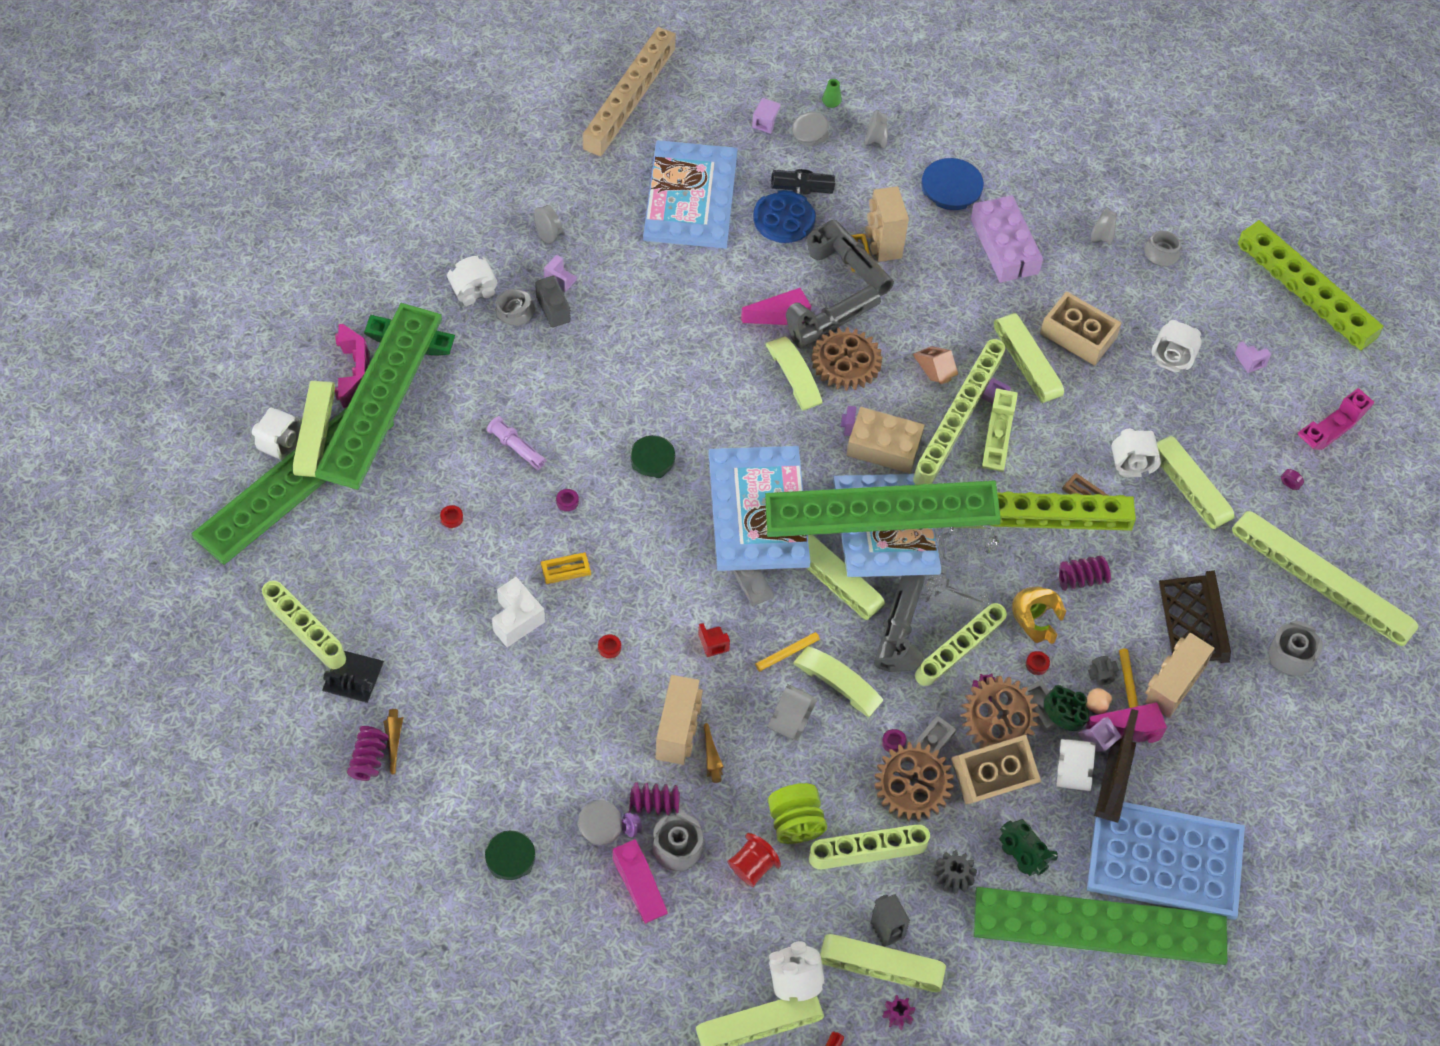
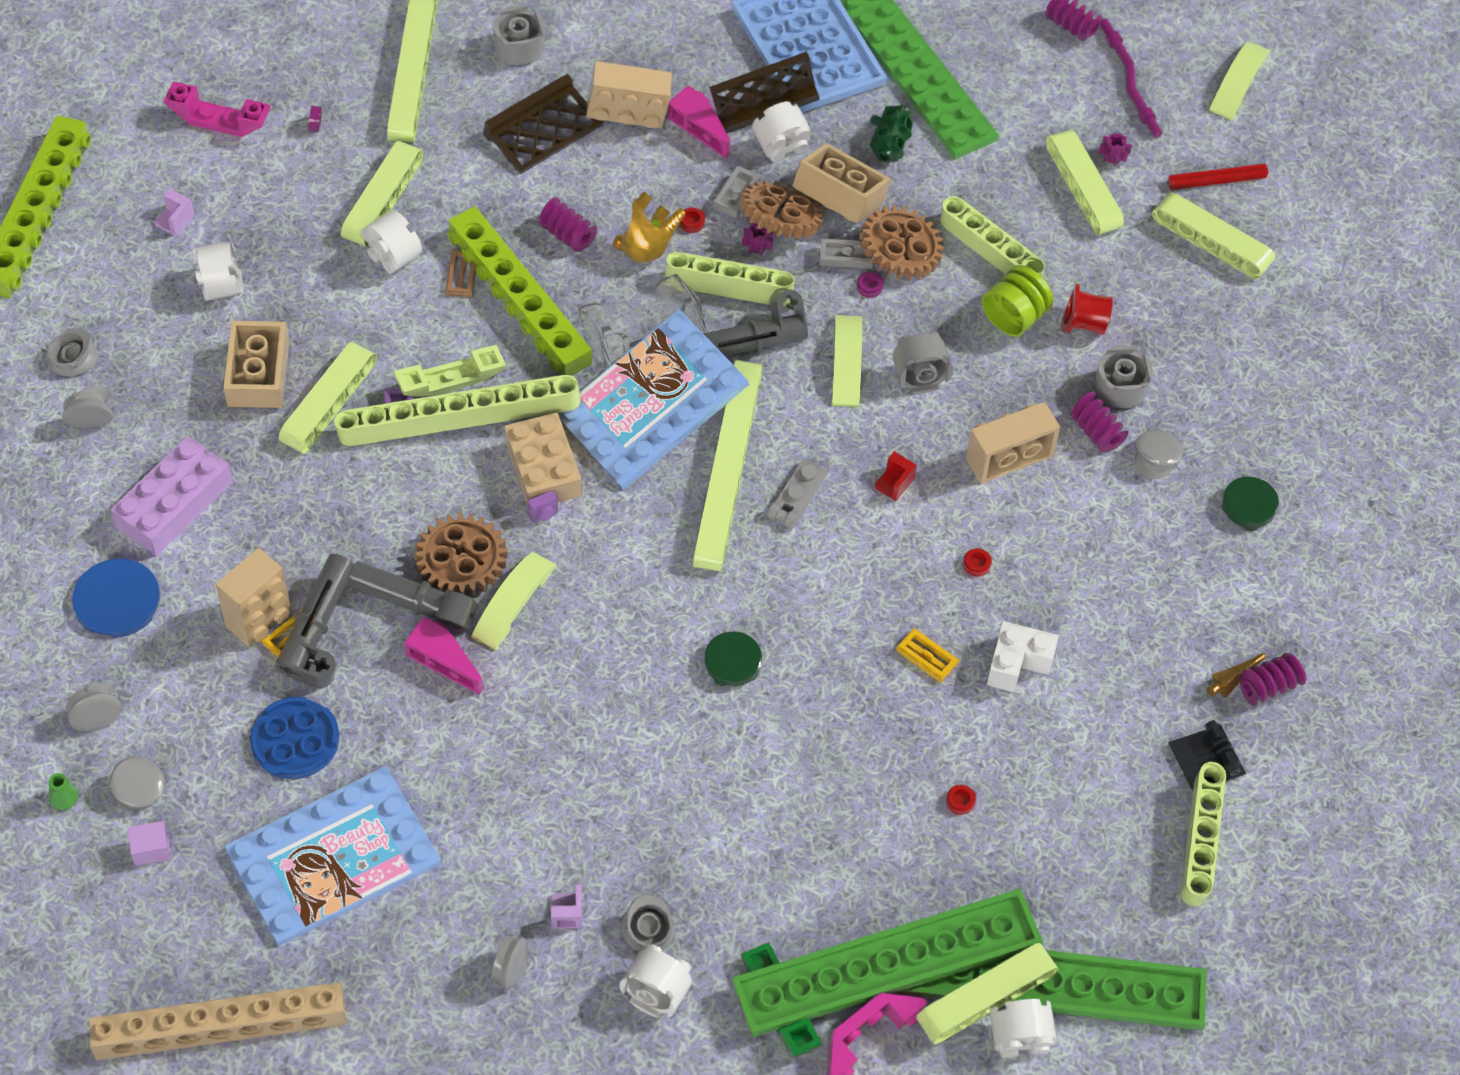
camera: 125 degrees left, 0 degrees up
(509, 437) = (824, 808): lavender pin -> none
(552, 301) = (614, 884): dark grey brick -> none
(567, 500) = (849, 706): magenta tile -> none
(631, 824) = (1136, 427): medium lavender plate -> none
(639, 880) = (1178, 393): dark pink slope -> none
(714, 763) = (1020, 401): pearl gold piece -> none
(739, 507) = (725, 513): light blue plate -> none
(787, 651) = (852, 415): yellow bar -> none
(796, 972) = (1159, 235): white brick -> none
(802, 181) = (234, 739): black piece -> none
(882, 508) = (656, 389): bright green plate -> none
(889, 919) = (1050, 185): dark grey brick -> none
(937, 363) = (401, 472): nougat slope -> none
(953, 879) = (957, 173): dark grey gear -> none
(1066, 708) = (729, 166): dark green tile -> none
(1098, 701) = (697, 153): light nougat piece -> none
(1102, 734) = (737, 128): lavender panel -> none
(1103, 670) = (662, 162): dark grey gear -> none
(1128, 678) = (652, 146): yellow bar -> none

